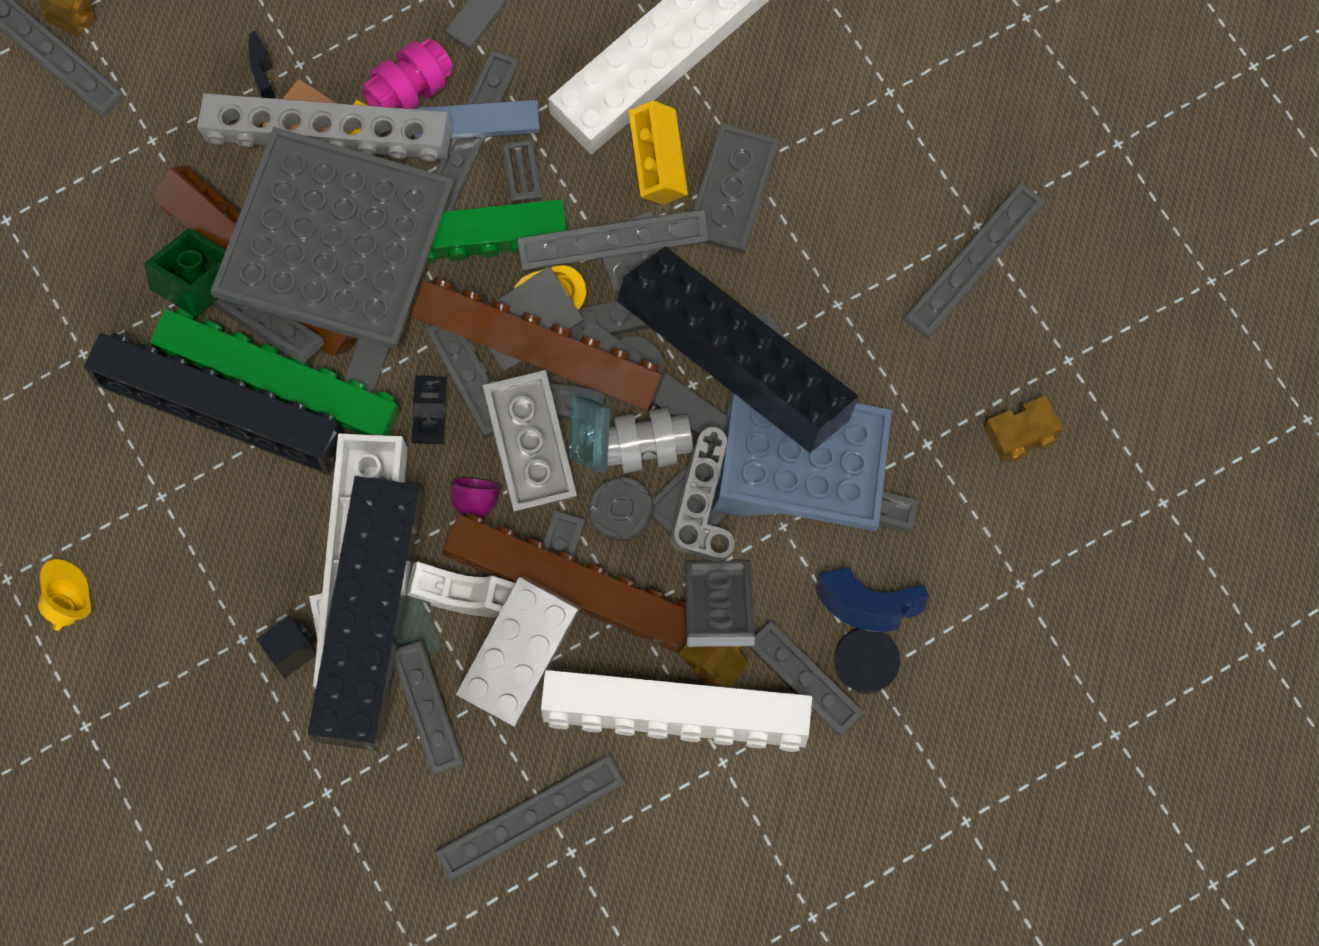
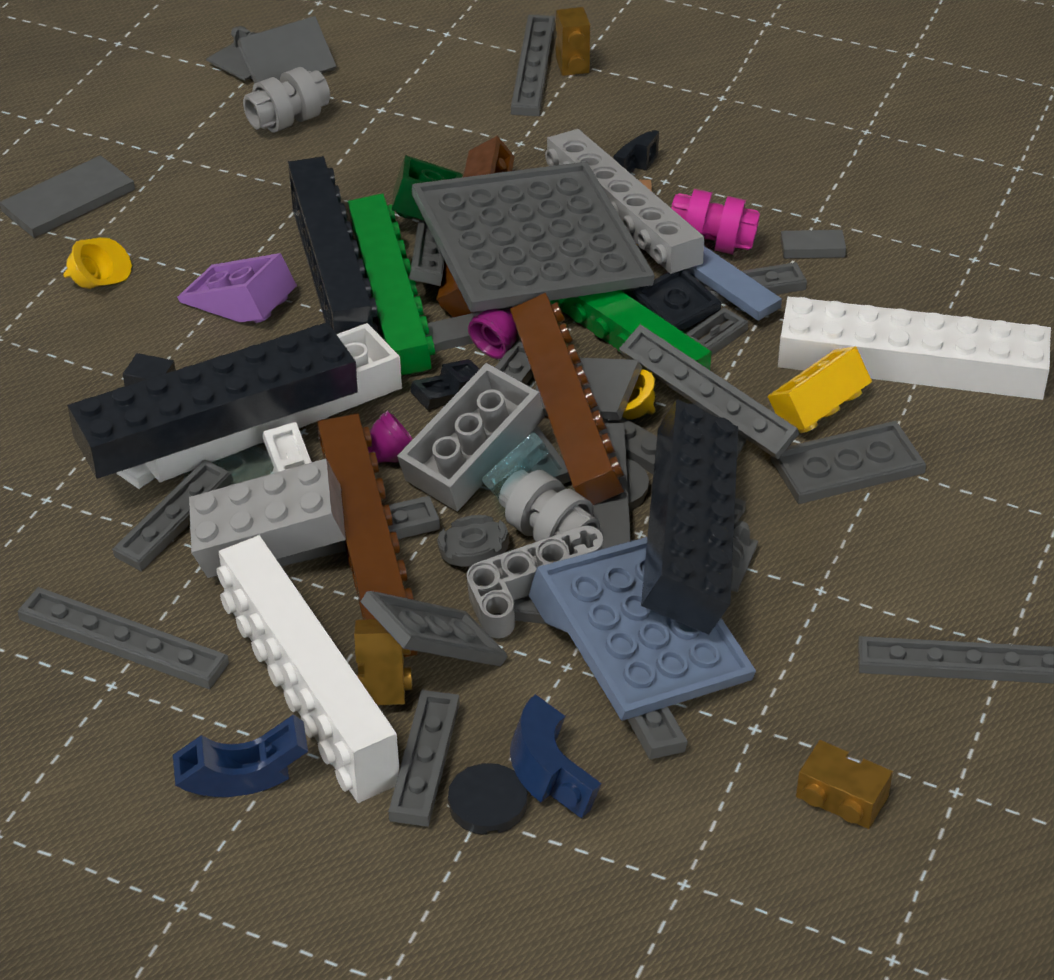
camera: 55 degrees right, 30 degrees down
(185, 498) = (241, 288): none -> medium lavender slope
(414, 339) = (493, 332): none -> magenta helmet
(476, 174) = (678, 299): none -> black tile
(729, 805) = (240, 768): none -> dark blue arch

